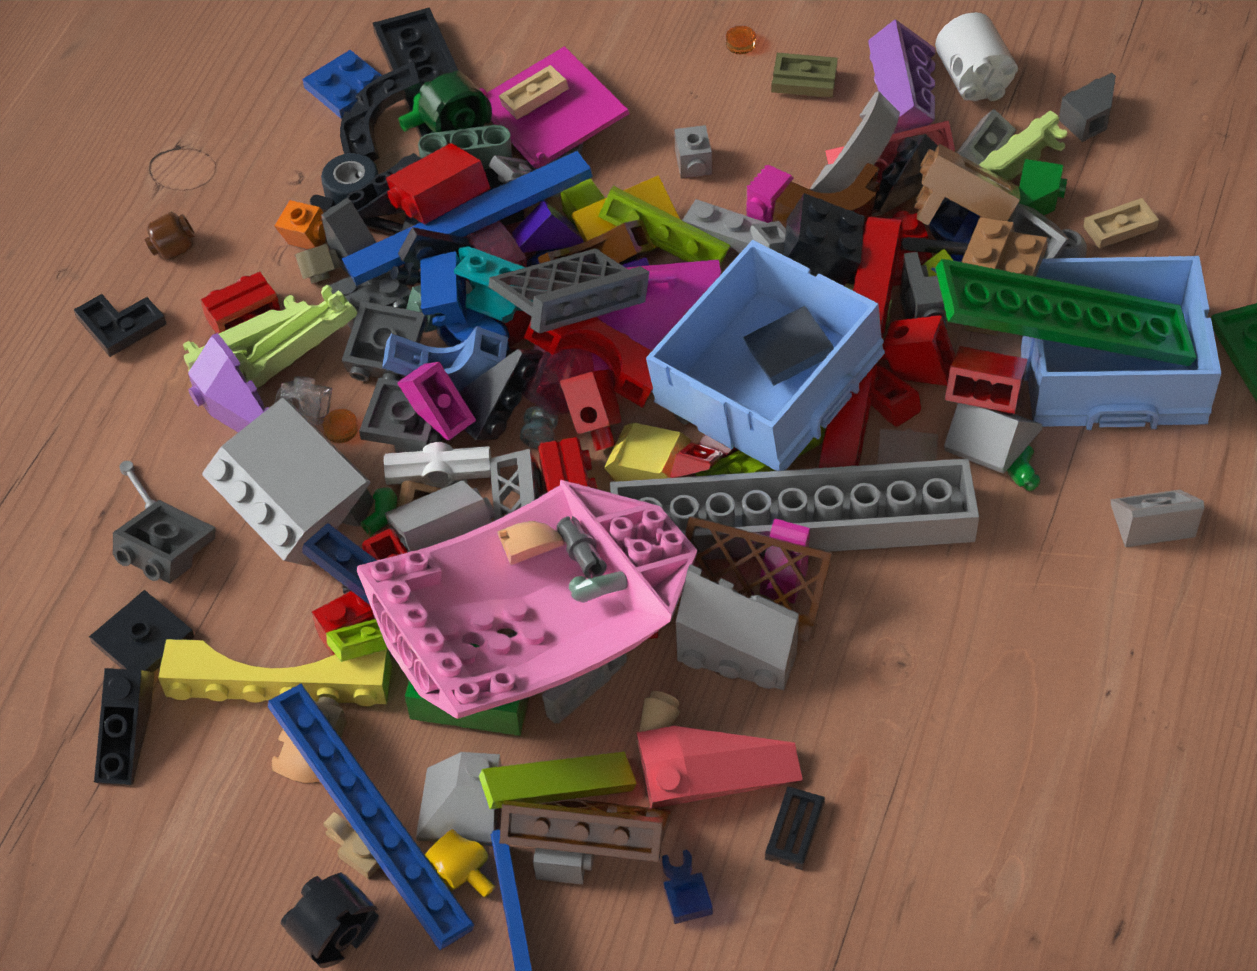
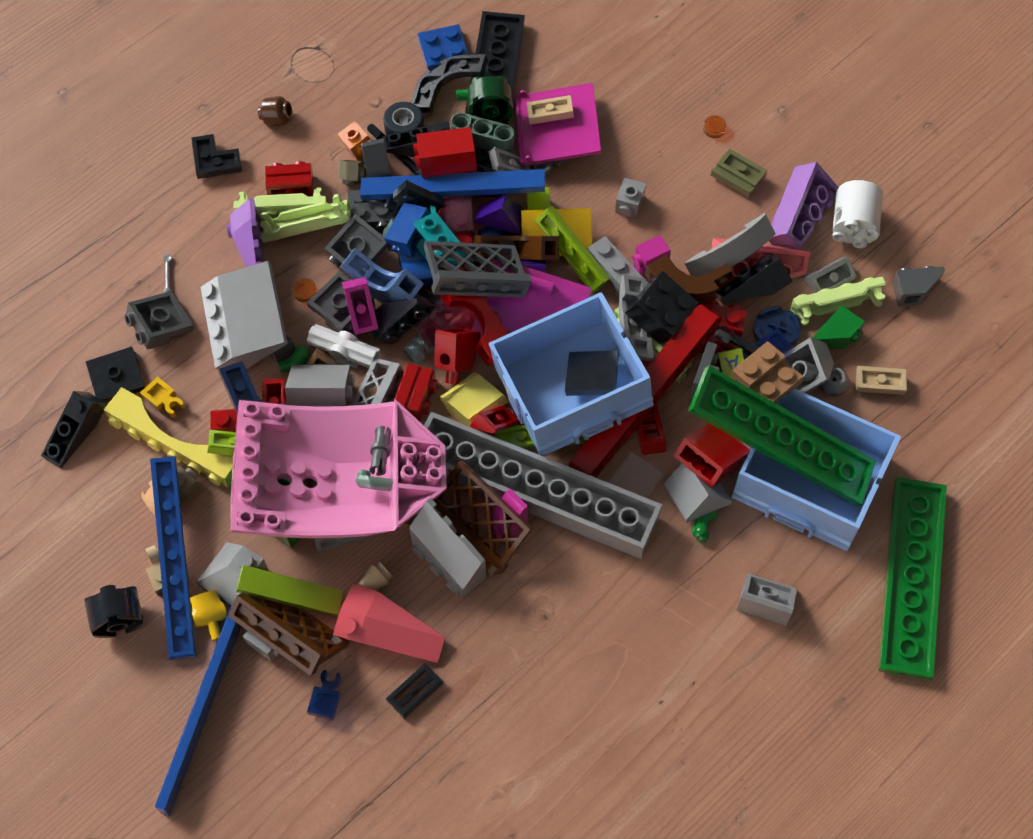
camera: 25 degrees right, 10 degrees up
(225, 629) = (161, 395): none -> yellow plate
(307, 397) = (288, 265): clear brick -> none
(528, 540) = (353, 429): light nougat brick -> none
(919, 350) = (675, 408): red torso -> none
(964, 183) = (783, 309): medium nougat brick -> none

